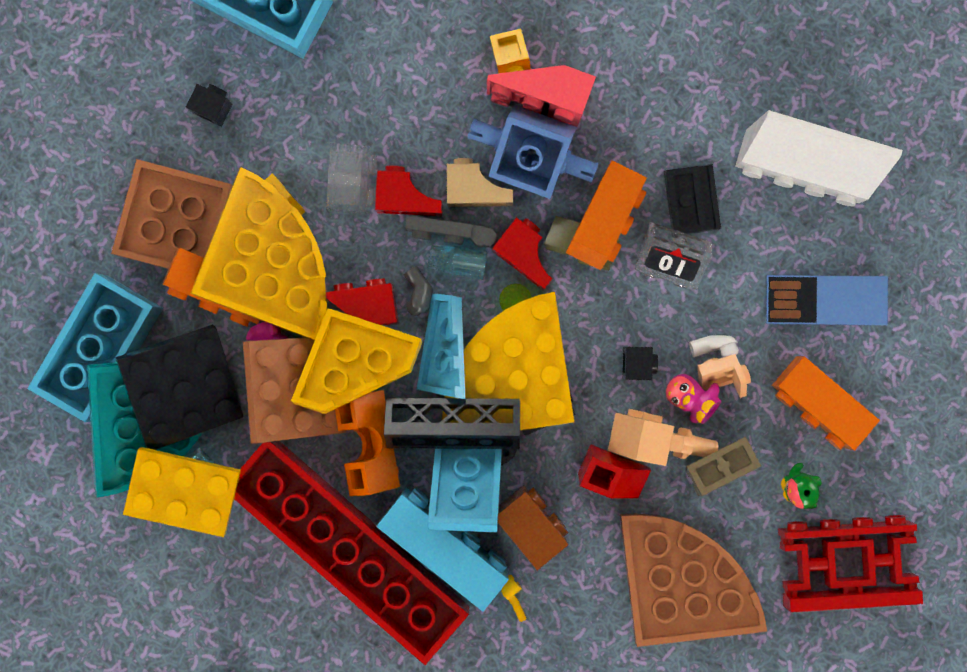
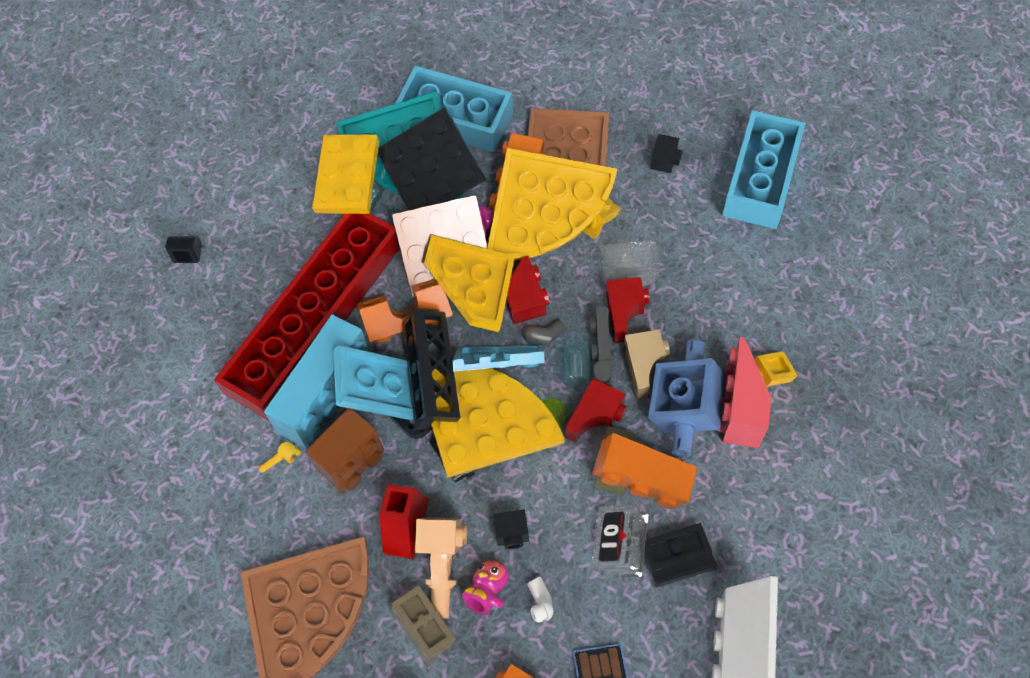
camera: 85 degrees right, 25 degrees down
(724, 372) = (516, 611): light nougat bracket -> none

